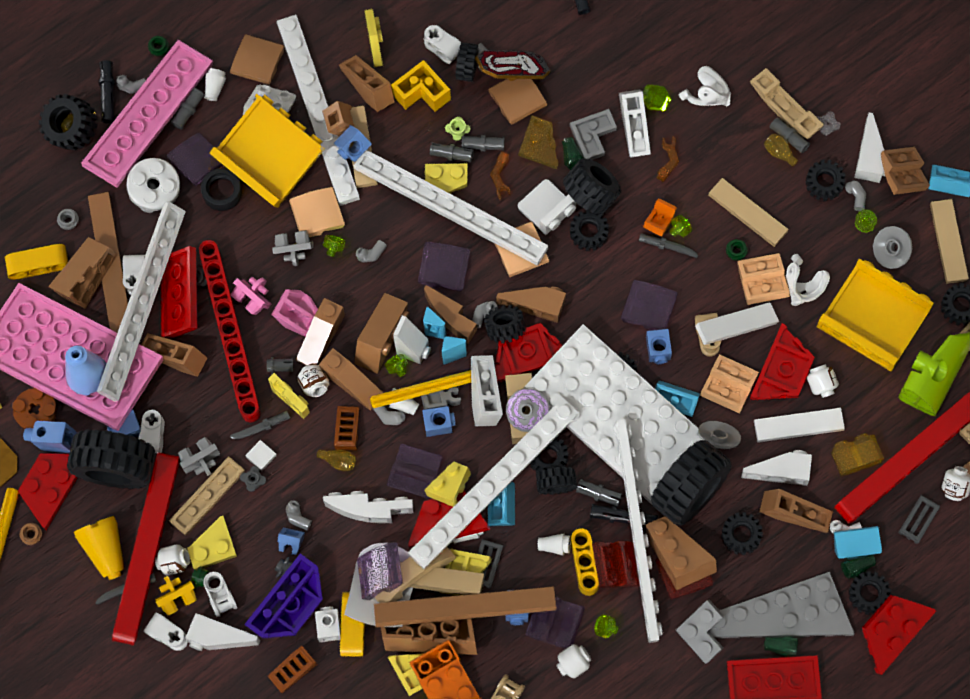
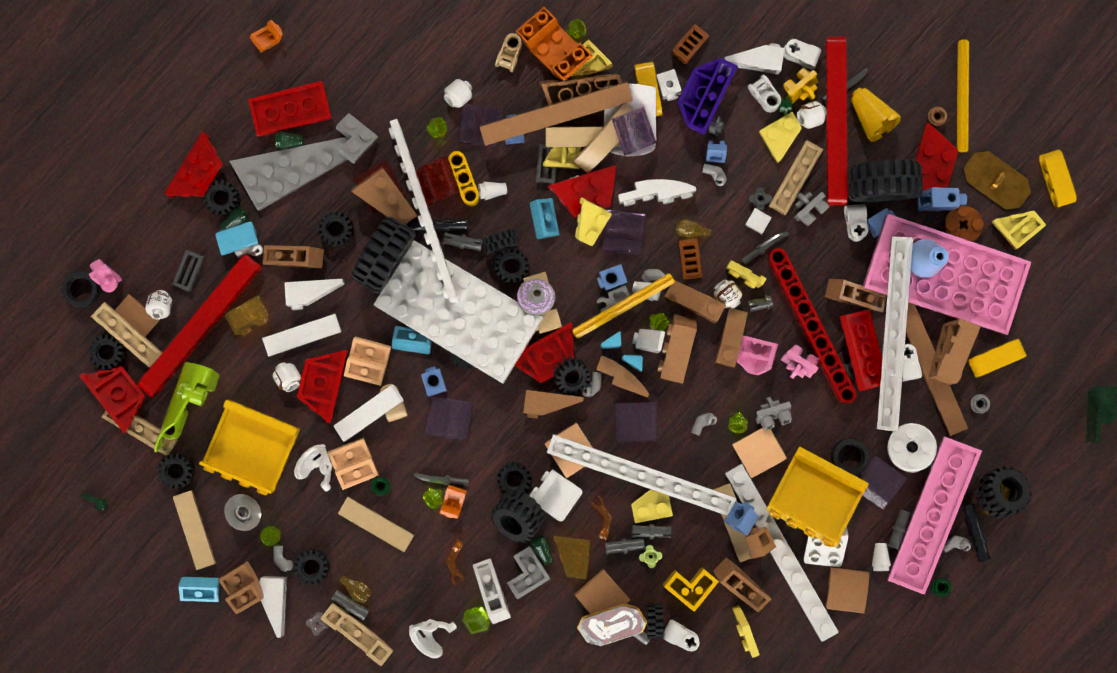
camera: 165 degrees right, 15 degrees up
(485, 392) = (577, 310): white slope -> none
(493, 483) = (552, 224): white plate -> none
(719, 434) = (365, 316): light grey dish -> none

